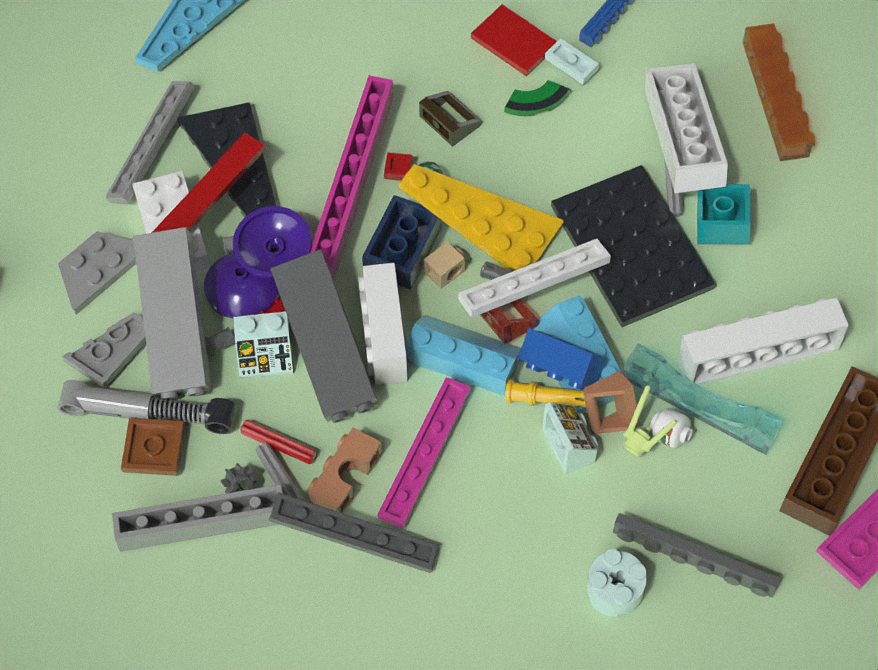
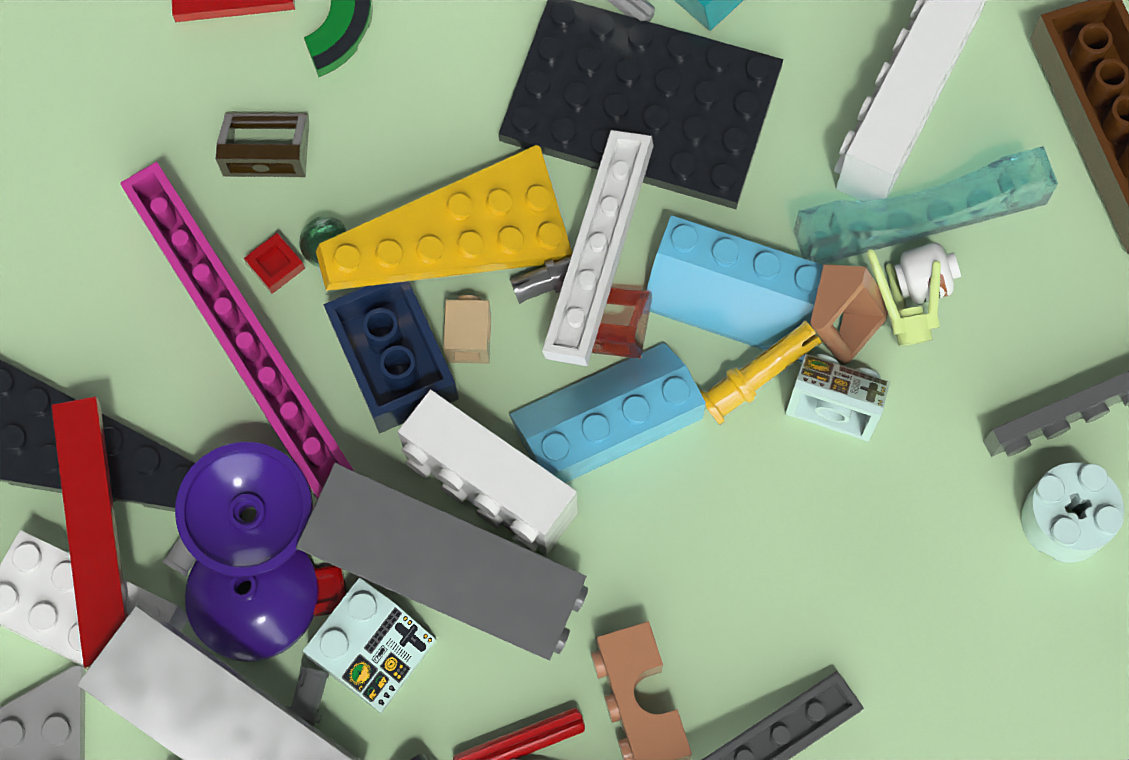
camera: 45 degrees left, 10 degrees up
(424, 453) = (700, 580): dark pink plate -> none
(561, 359) = (736, 313): blue brick -> none

